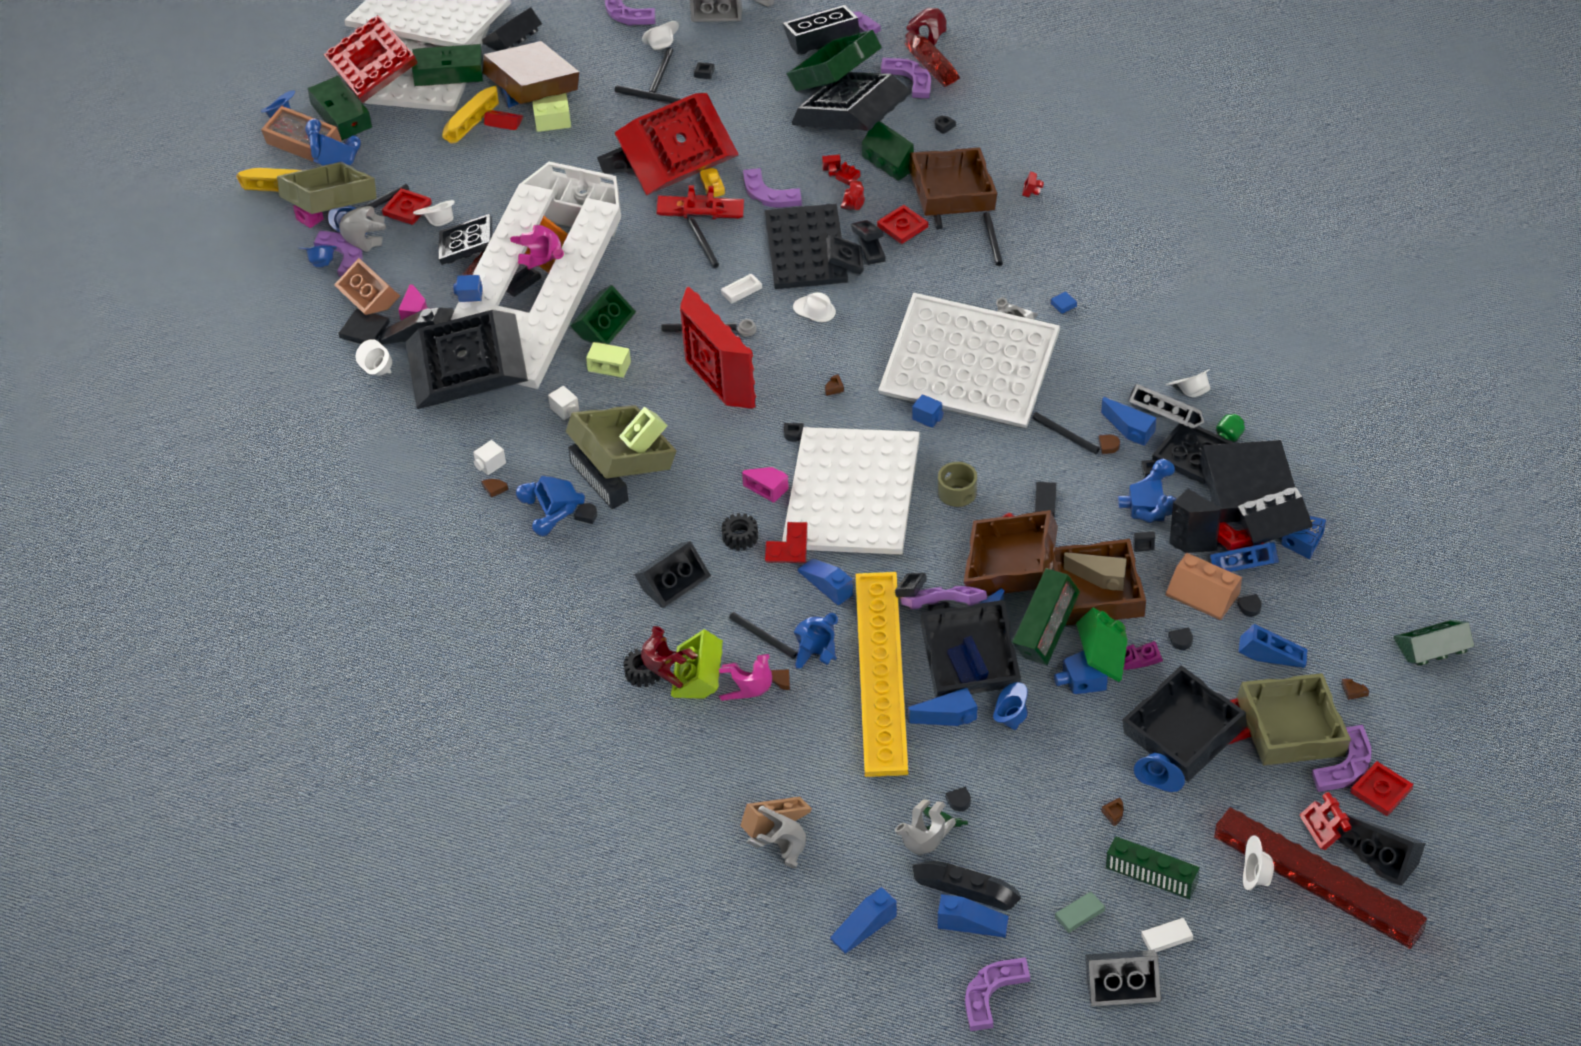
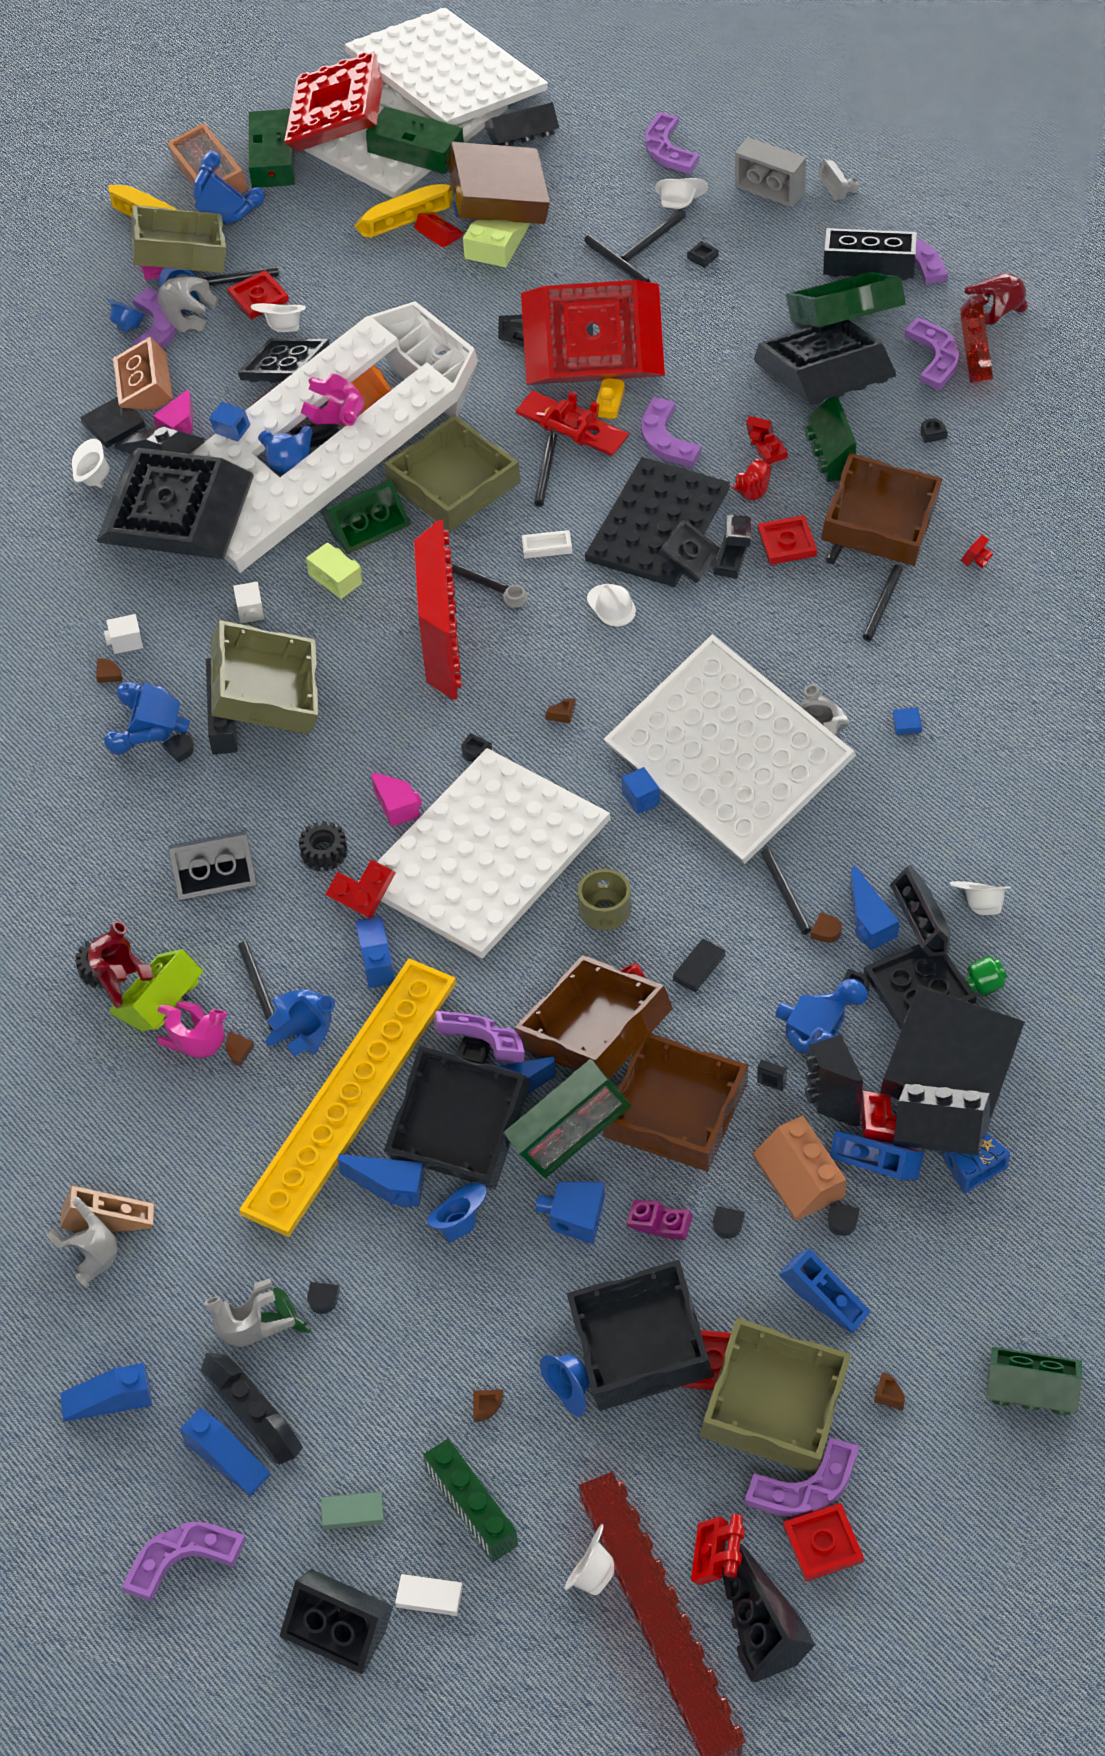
camera: 30 degrees right, 5 degrees up
(283, 101) = (214, 121): blue piece -> none
(522, 293) = (285, 450): none -> blue piece
(643, 430) = (292, 675): yellowish green brick -> none
(644, 267) = (452, 472): none -> olive tile
(910, 585) = (458, 1002): black tile -> none
(968, 662) = (447, 1132): clear blue panel -> none
(1098, 570) = (693, 1092): dark tan slope -> none
(1103, 642) = (615, 1186): green slope -> none

